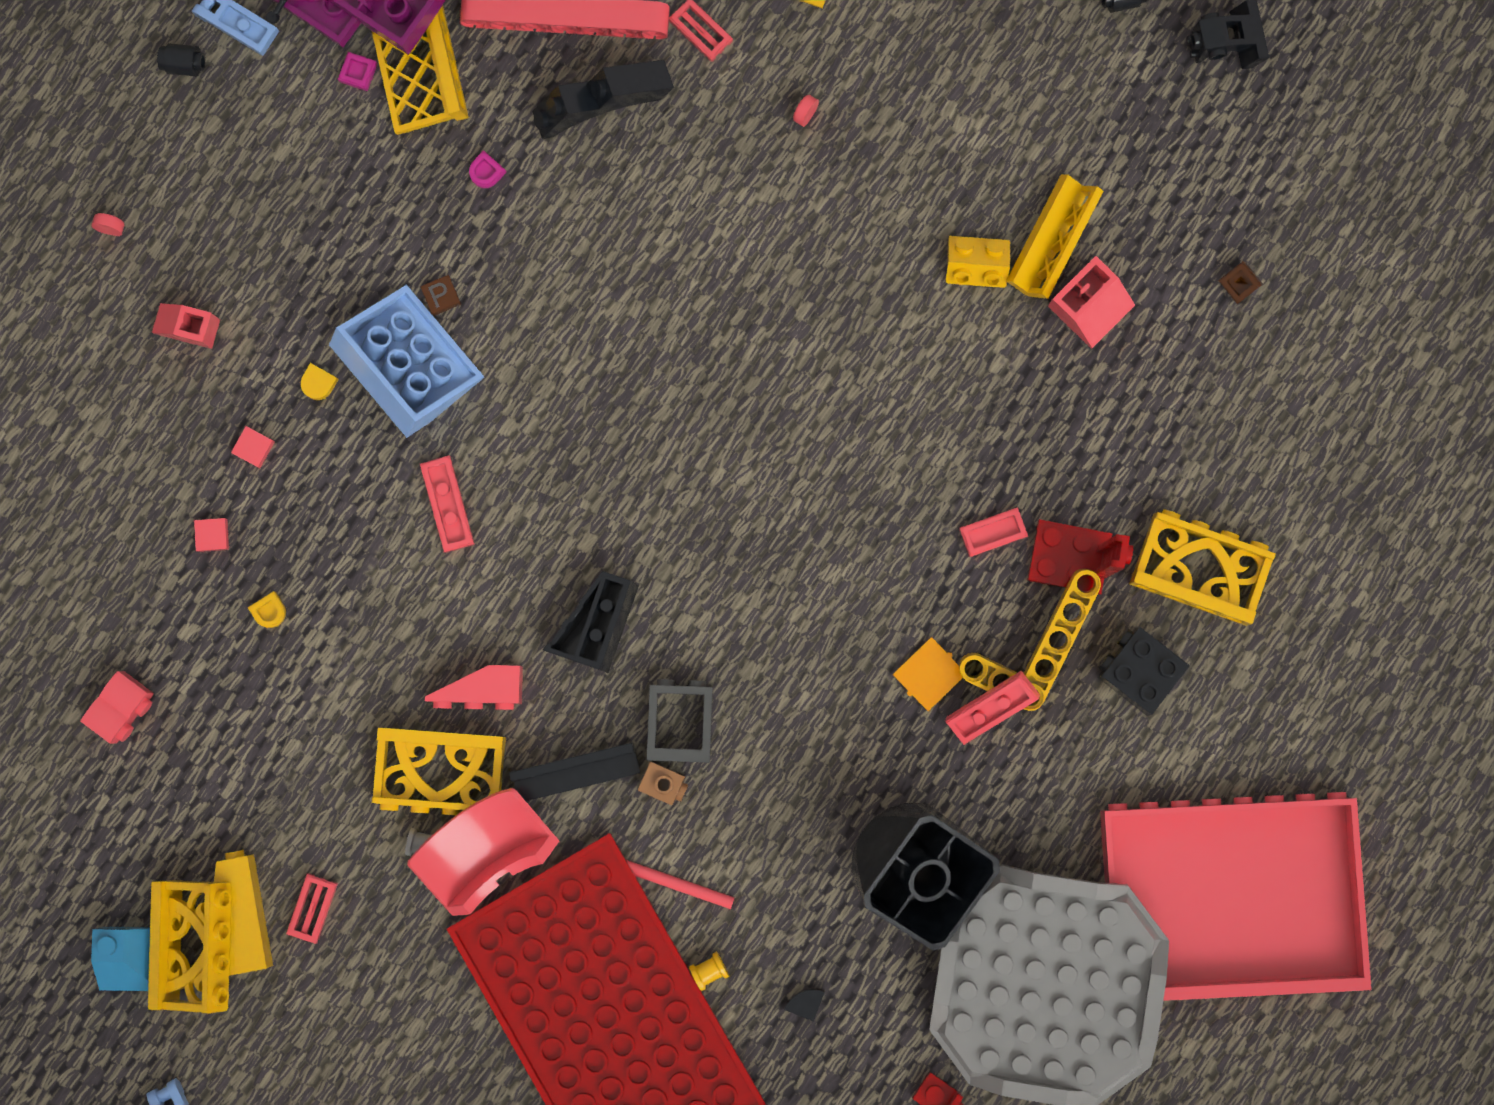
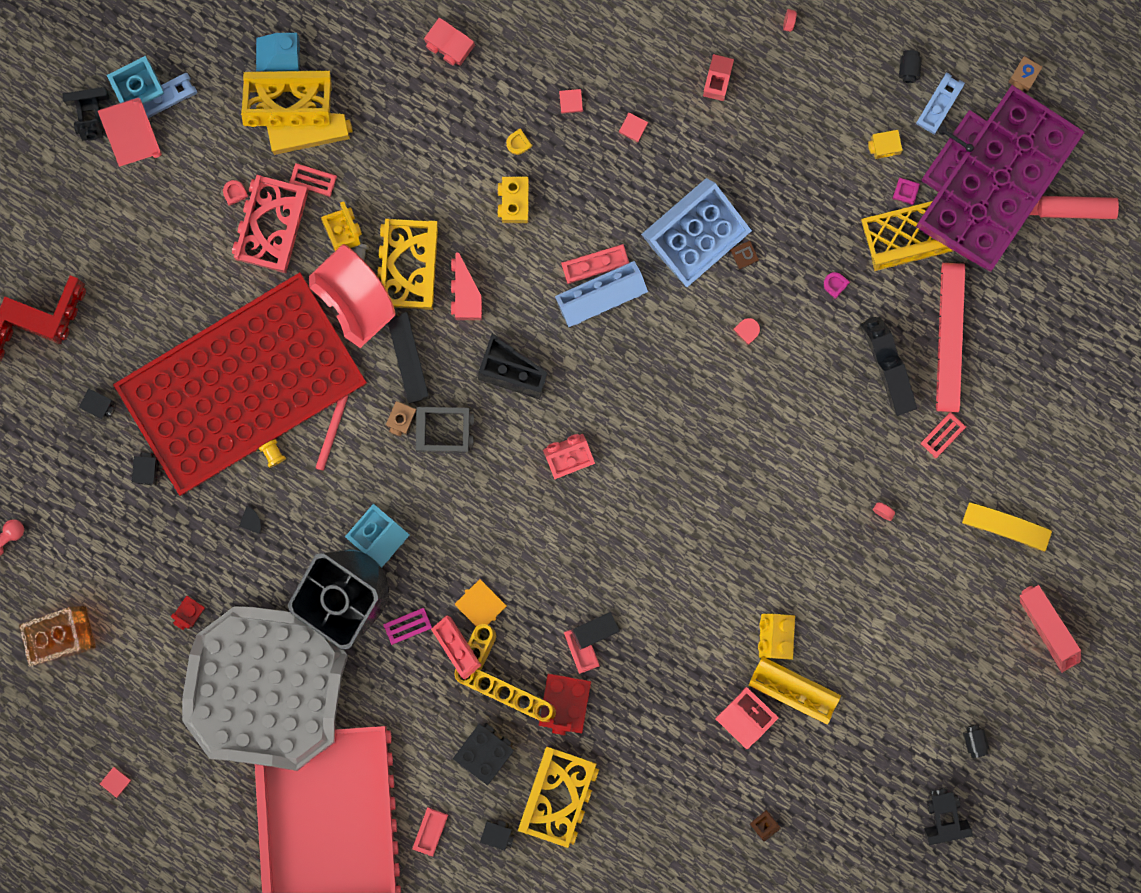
camera: 90 degrees right, 0 degrees up
(290, 95) = (885, 144): none -> yellow brick
(317, 383) = (680, 170): yellow tile -> none
(325, 1024) = (234, 192): none -> coral tile
(348, 934) = (284, 250): none -> coral fence
(350, 616) = (514, 199): none -> yellow brick
(383, 866) = (341, 227): none -> yellow bracket
(492, 494) = (601, 294): none -> light blue brick
(547, 292) = (748, 330): none -> coral tile
(720, 545) = (568, 455): none -> coral bracket
(830, 820) = (377, 535): none -> medium azure slope
(968, 512) = (595, 630): none -> black tile
(976, 787) = (390, 633): none -> dark pink tile
(1250, 749) = (430, 832): none -> coral tile
(1256, 654) = (497, 835): none -> black brick

